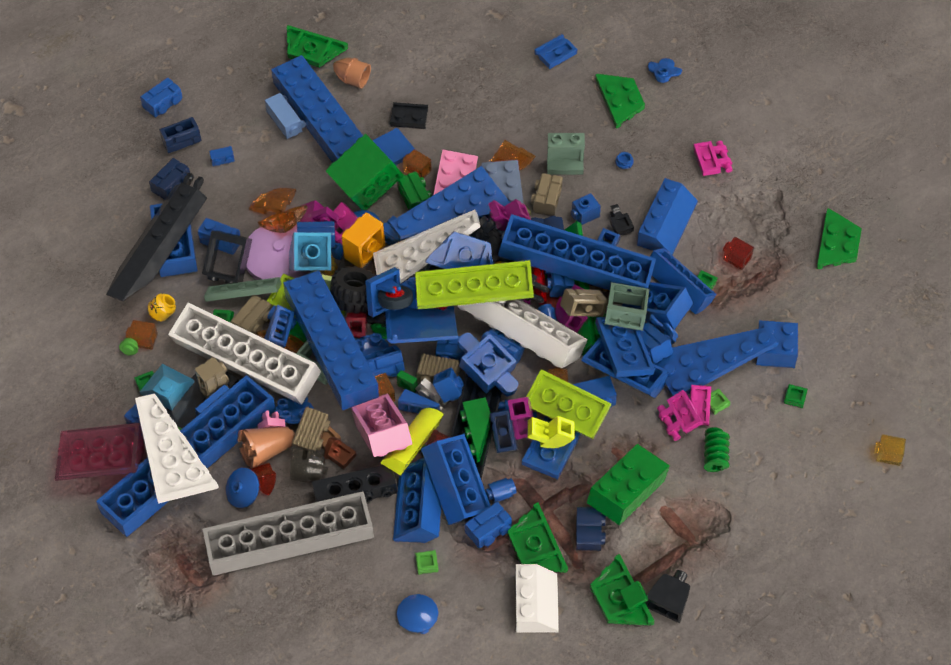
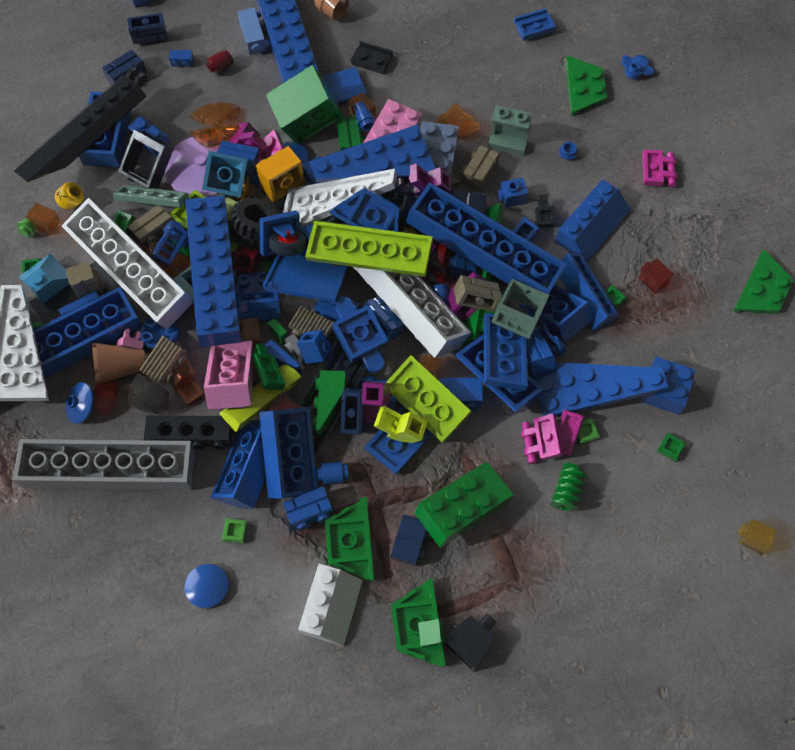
camera: 15 degrees right, 10 degrees up
(262, 151) = (219, 62): none -> dark red brick
(413, 412) = (267, 369): none -> green hinge
(425, 171) = (364, 116): none -> blue cone

